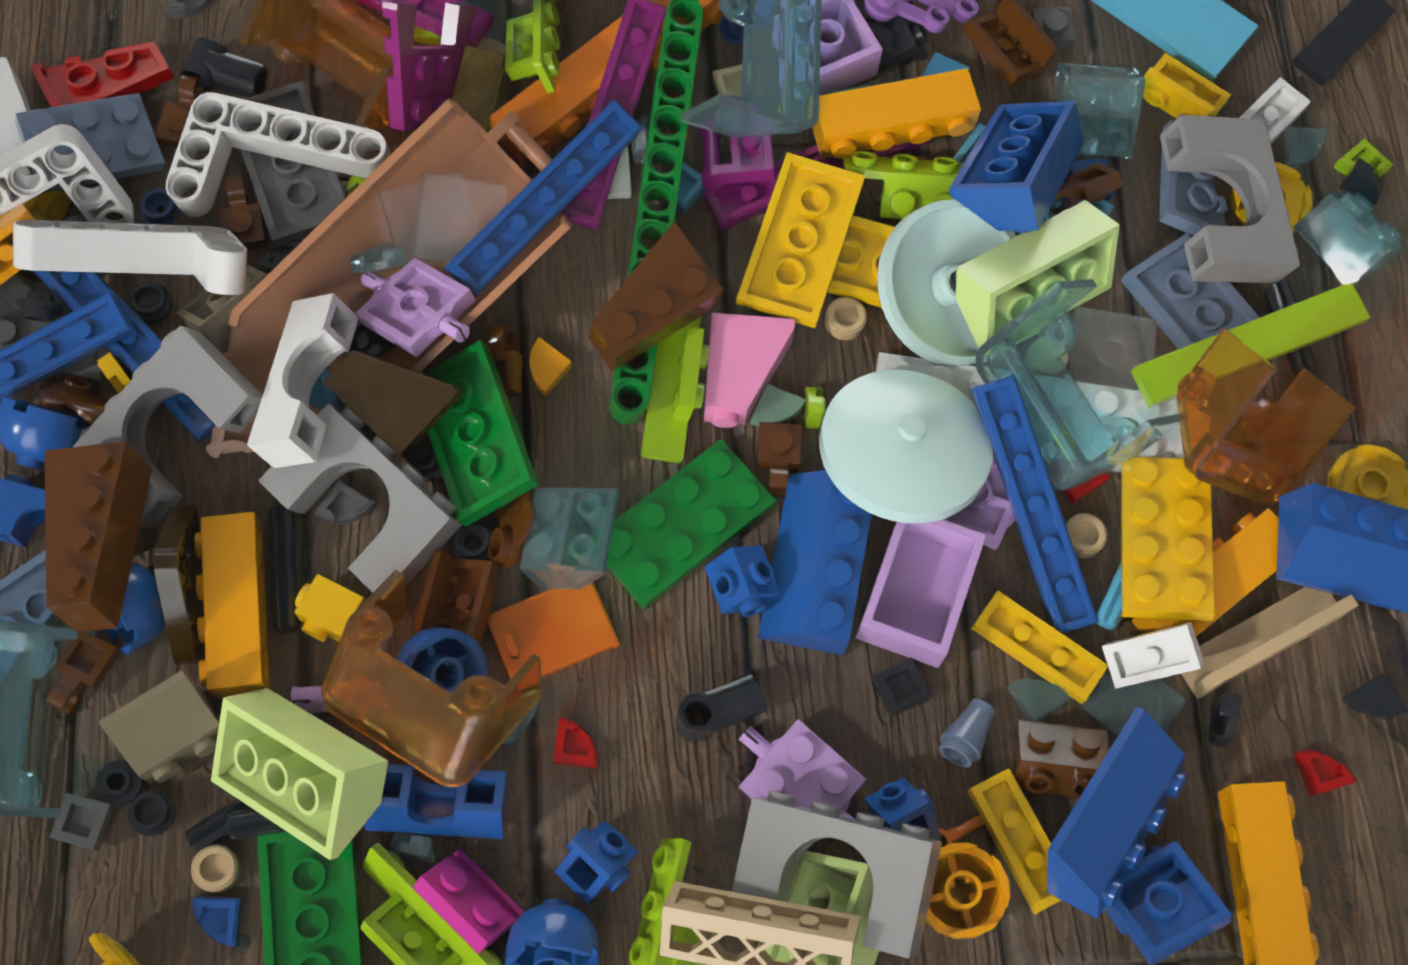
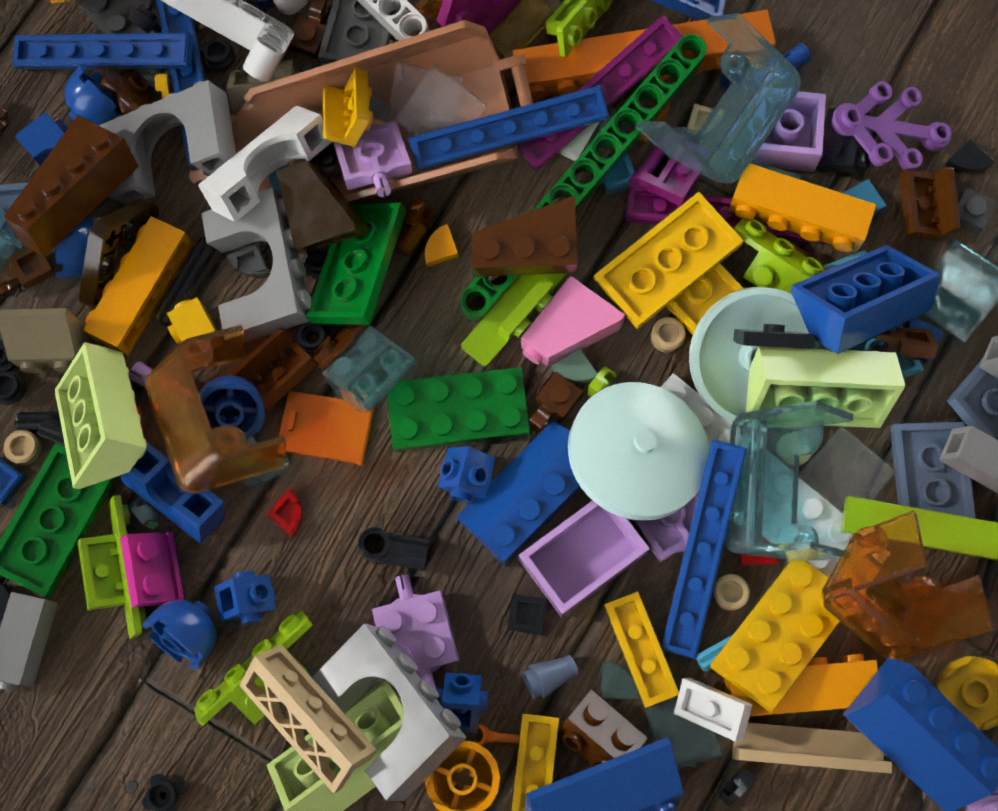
camera: 45 degrees right, 5 degrees up
(360, 271) = (347, 110): none -> yellow bracket
(963, 250) = (773, 336): none -> black plate

